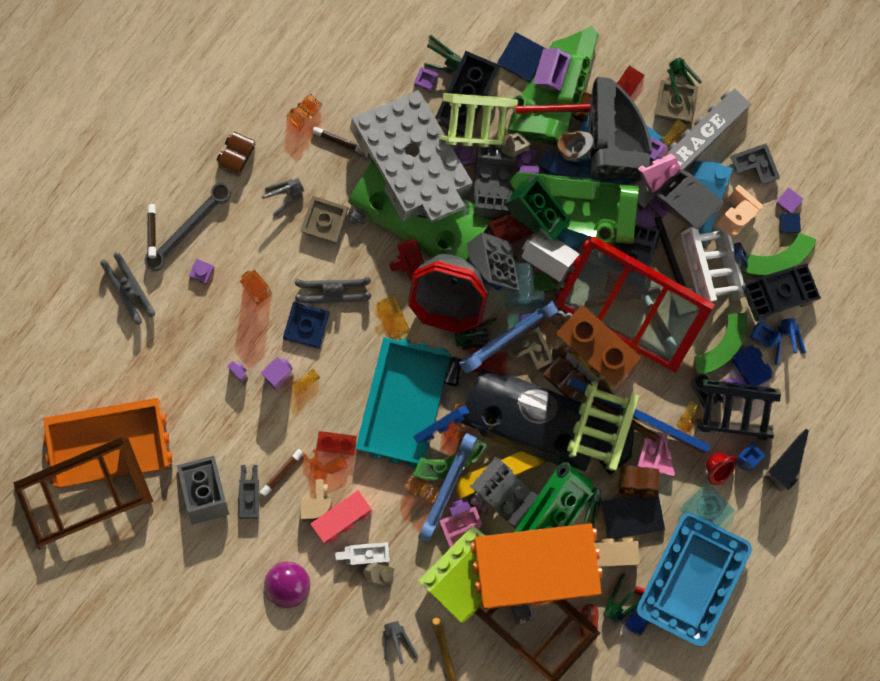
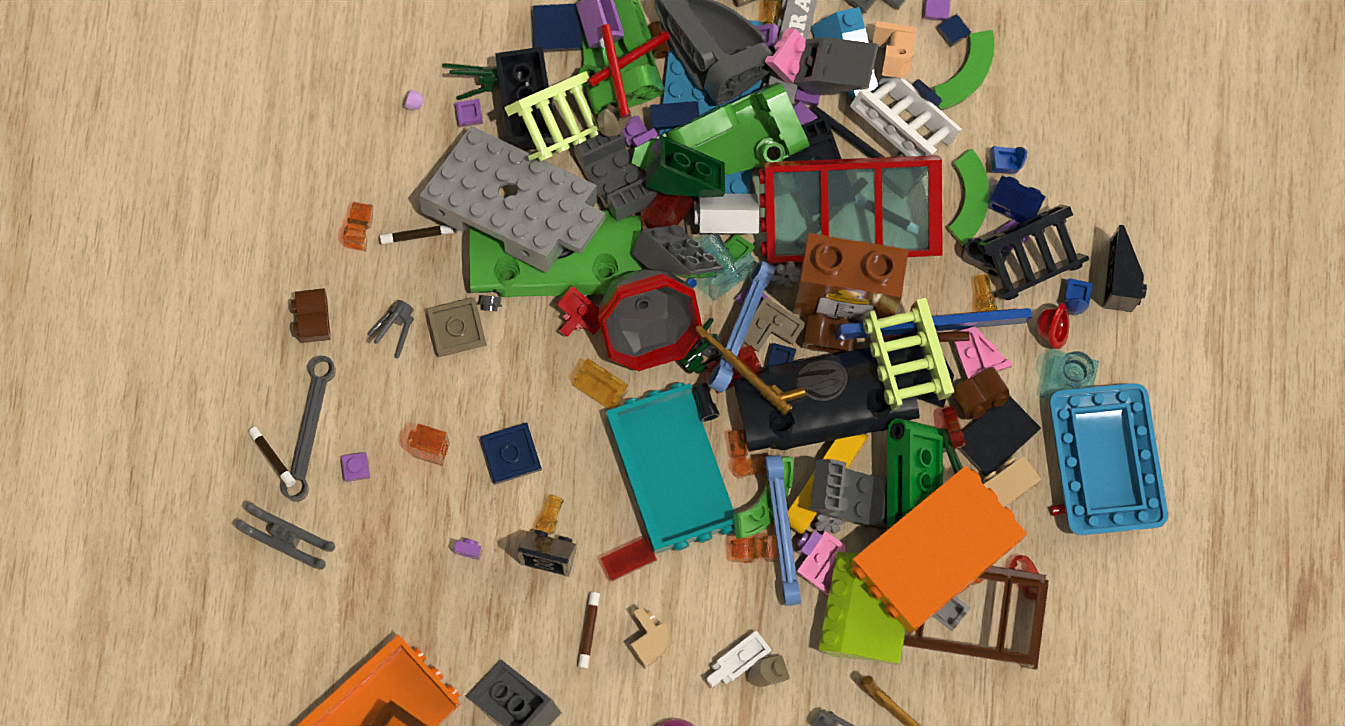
camera: 40 degrees left, 5 degrees down
(249, 494) = (569, 677): dark grey hinge -> none
(278, 373) = (515, 522): medium lavender piece -> none
(285, 405) = (547, 553): none -> black slope
(319, 471) = (631, 601): clear orange bar -> none
(333, 291) = (517, 397): dark grey piece -> none
(342, 517) = (688, 636): coral brick -> none
(394, 49) = (414, 100): none -> lavender hinge
(441, 425) = (733, 465): blue plate -> none
(465, 155) = (567, 163): medium lavender plate -> none
(496, 394) = (773, 394): none -> pearl gold piece
(524, 372) = (780, 355): none -> dark blue tile
(536, 112) = (615, 71): none -> red bar
(575, 145) = (680, 81): light grey piece -> none
(606, 492) = (954, 427): none -> clear red beam
(615, 611) = (1048, 547): dark green plant -> none
(636, 623) = (1078, 546): clear blue brick -> none
(780, 291) = (994, 104): black plate -> none
(789, 328) = (1028, 137): blue plant -> none

